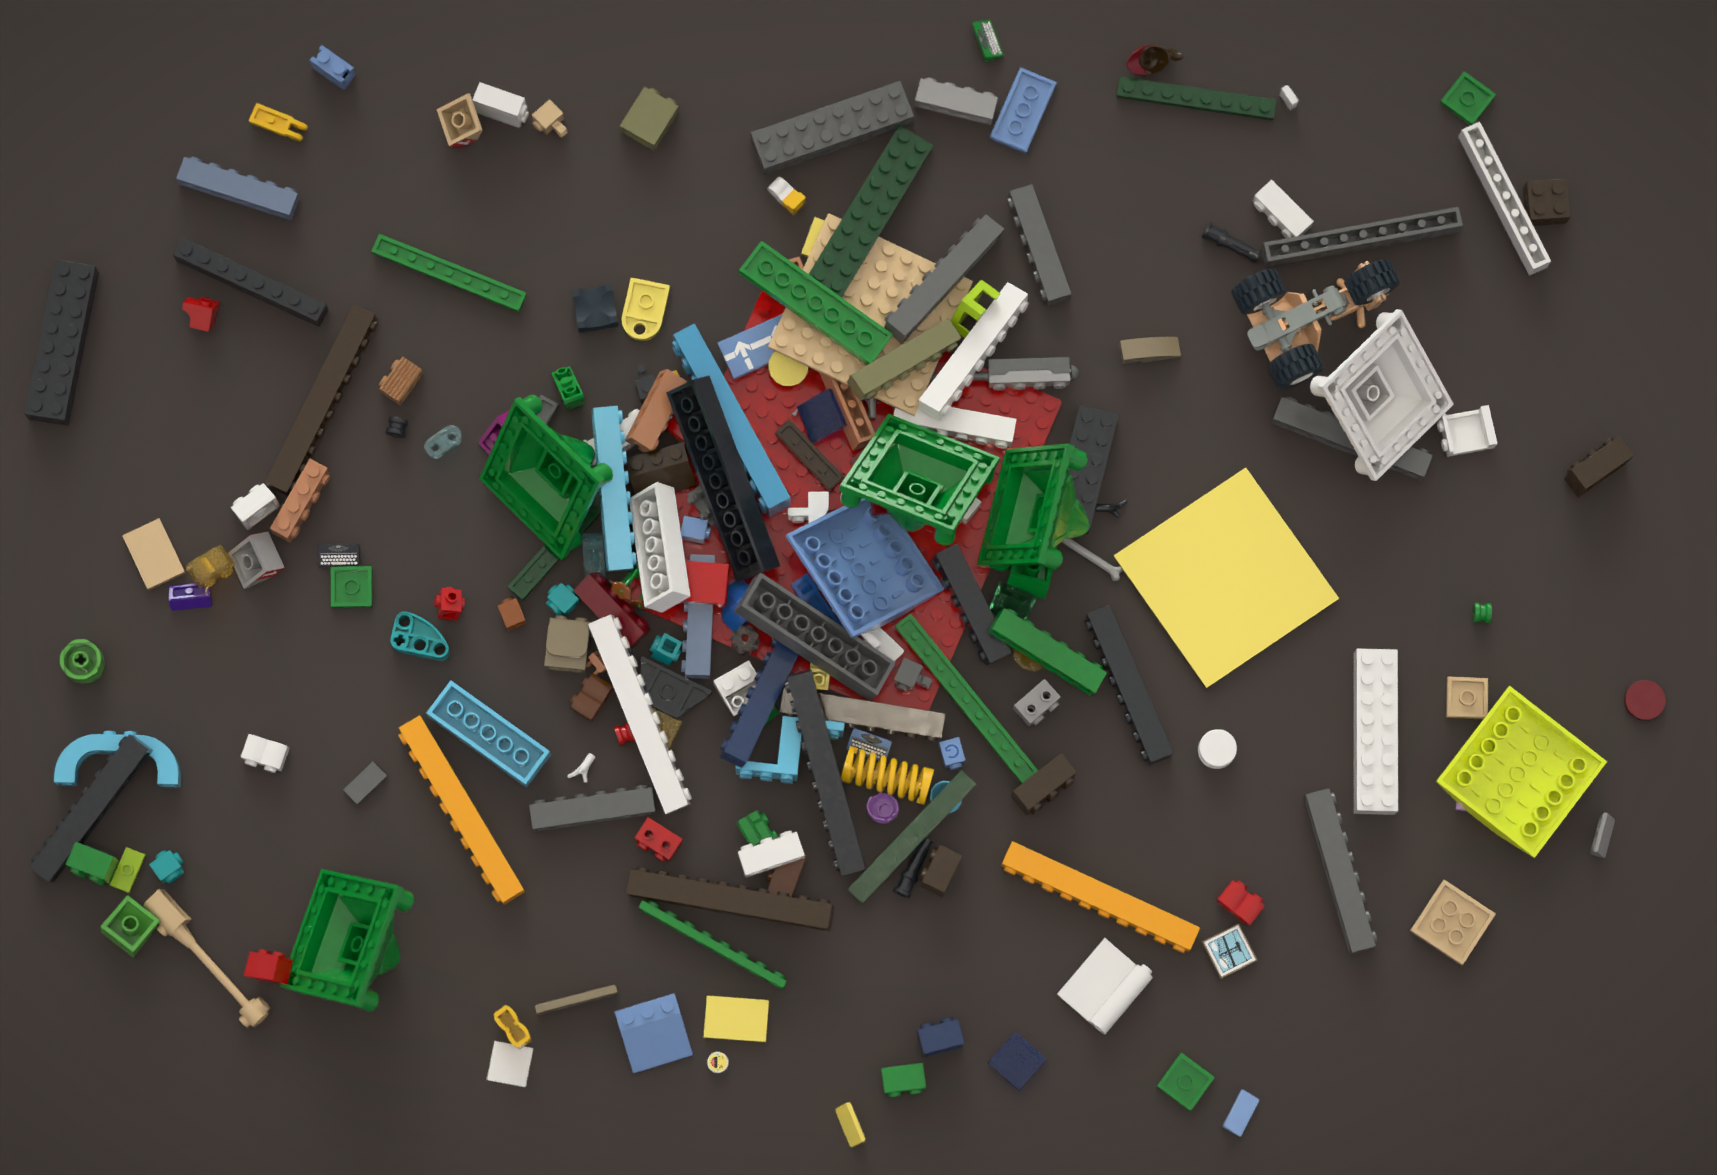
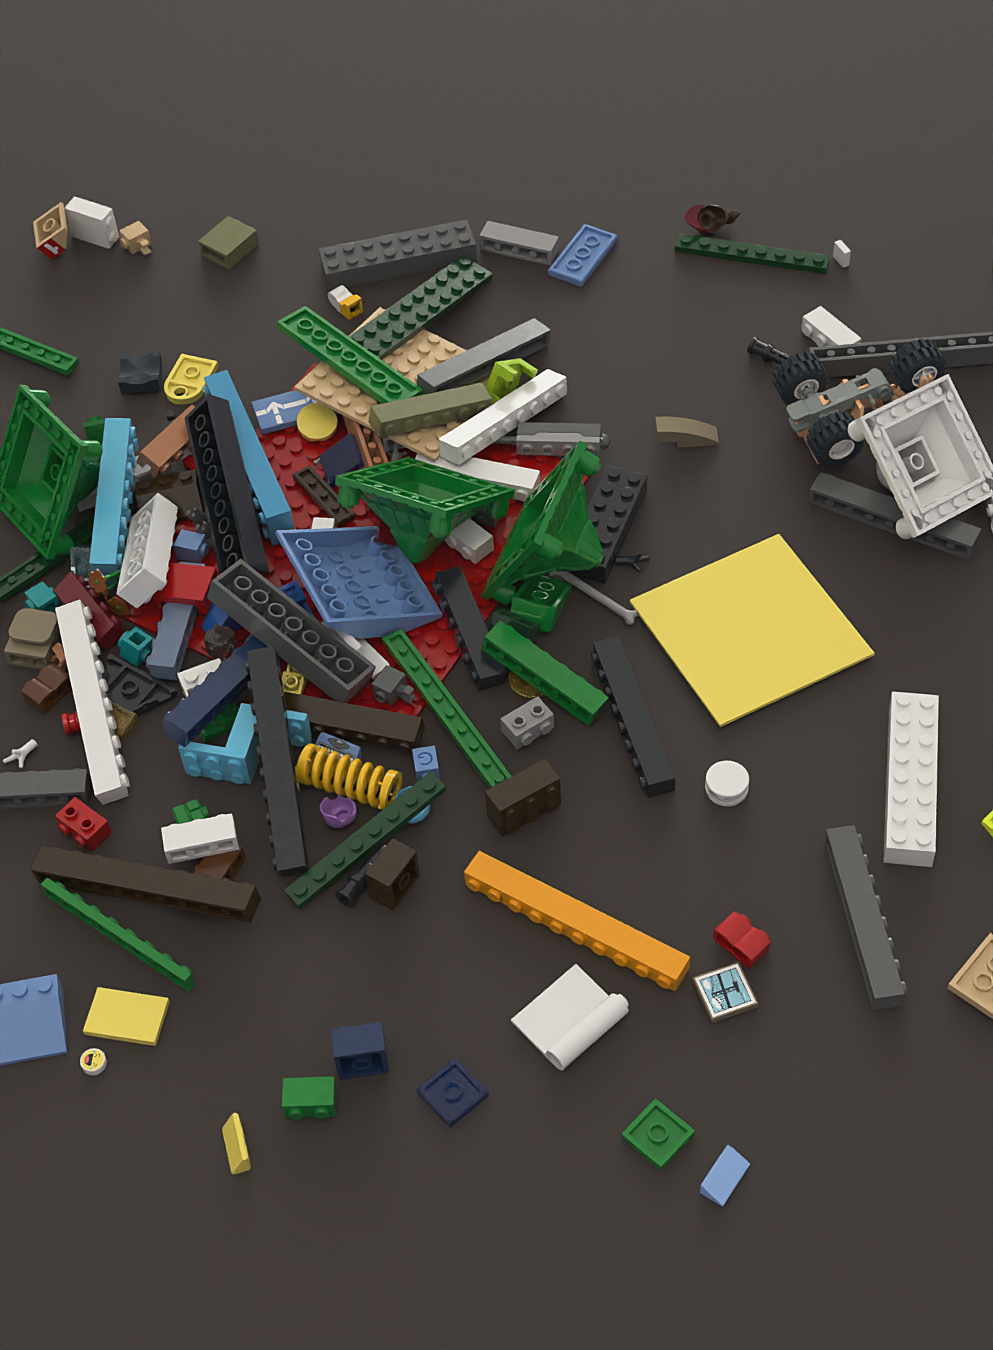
camera: 15 degrees right, 25 degrees down
(987, 40) = (555, 205): slope -> none
(1039, 245) = (584, 349): dark grey brick -> none

